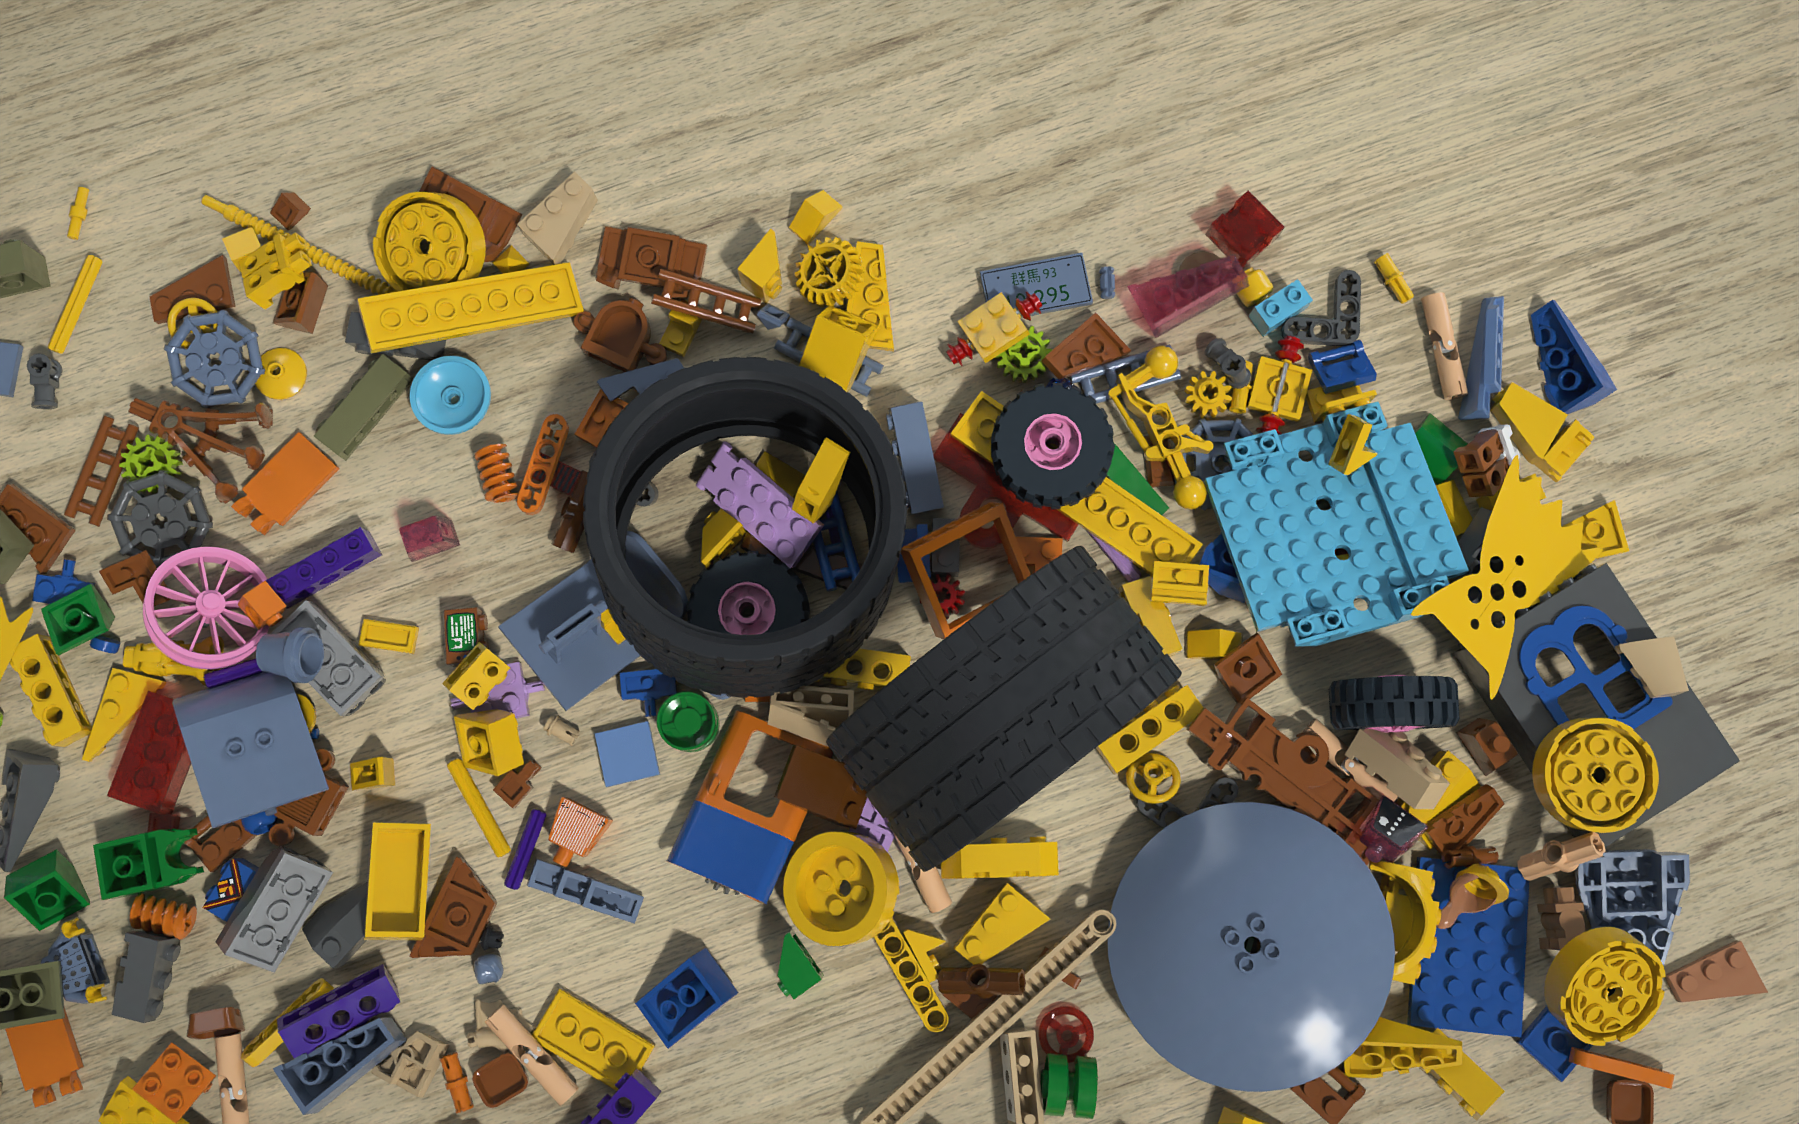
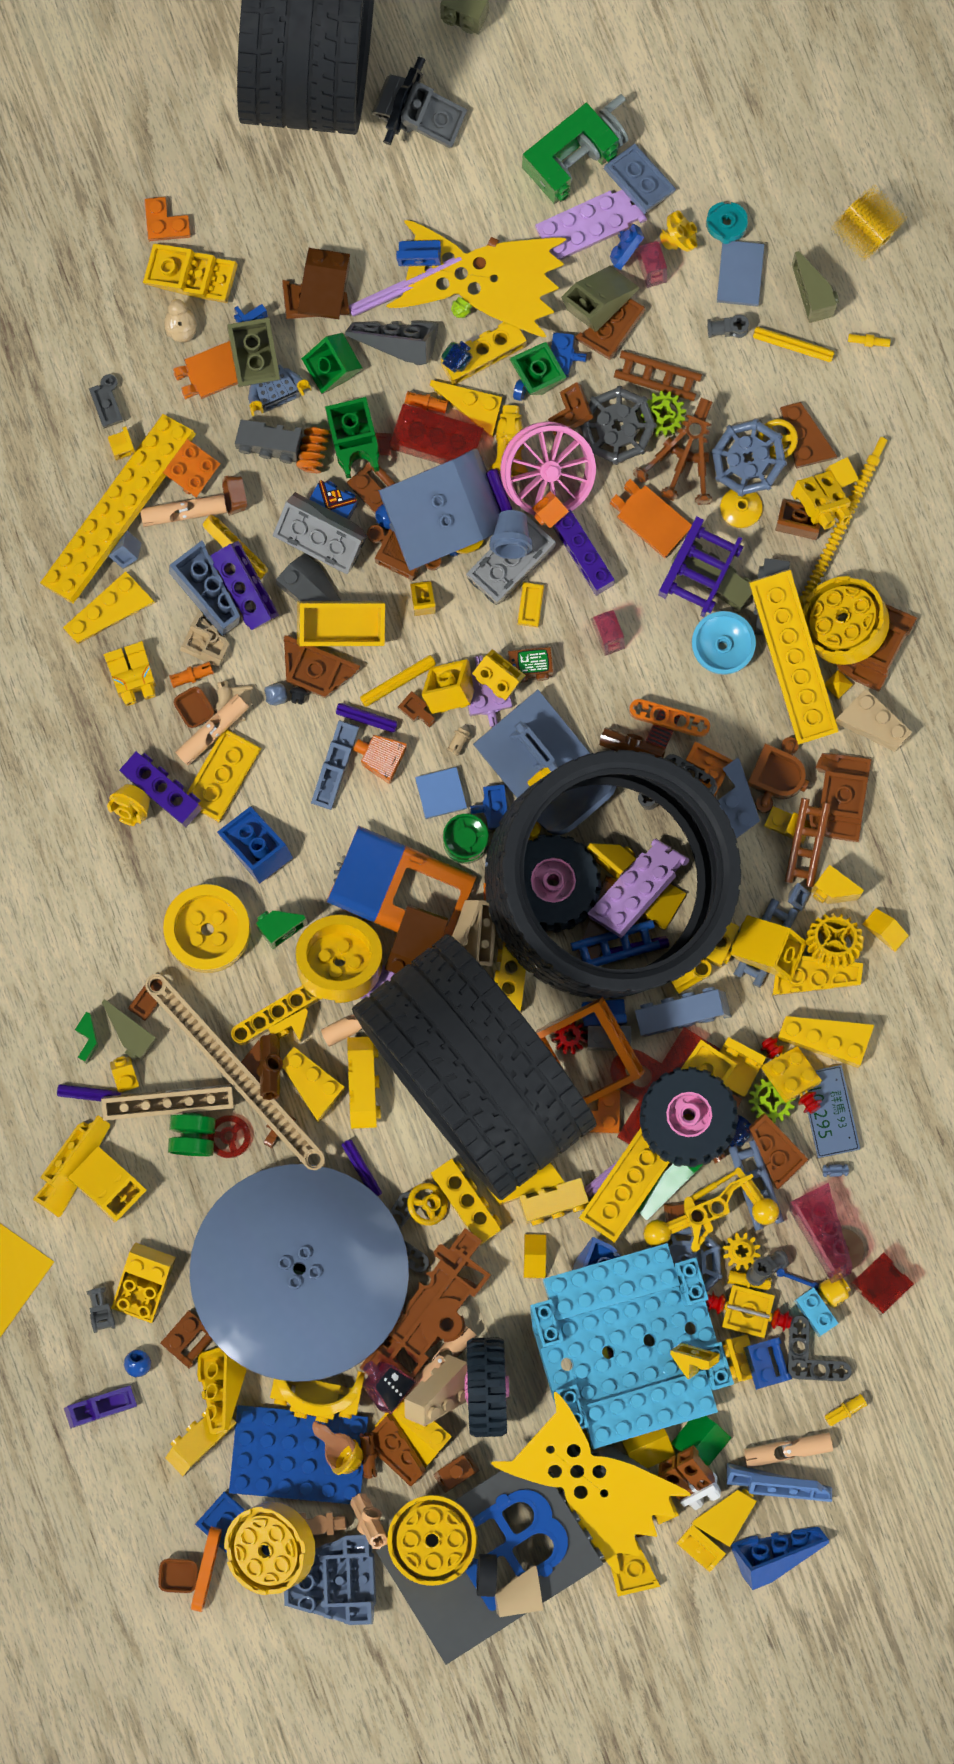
camera: 90 degrees right, 0 degrees up
(47, 723) = (457, 356): none -> clear blue head
(110, 765) = (426, 402): none -> orange pin
(289, 209) = (878, 506): dark orange slope -> none
(350, 443) = (679, 568): none -> dark purple fence
(495, 473) = (661, 681): orange piece -> none
(789, 1093) = (200, 907): none -> yellow brick
(821, 481) = (651, 932): yellow slope -> none
(950, 277) = (832, 1039): none -> yellow wedge
(976, 380) = (747, 1066): none -> yellow bracket
(1107, 861) = (361, 1167): none -> dark purple axle
(1179, 583) = (581, 1221): yellow plate -> none
(1245, 311) = (780, 1273): none -> blue hinge
(1247, 669) = (515, 1281): dark orange slope -> none
(1640, 705) = (486, 1575): none -> black tyre
(1717, 975) = (276, 1653): nougat wing -> none

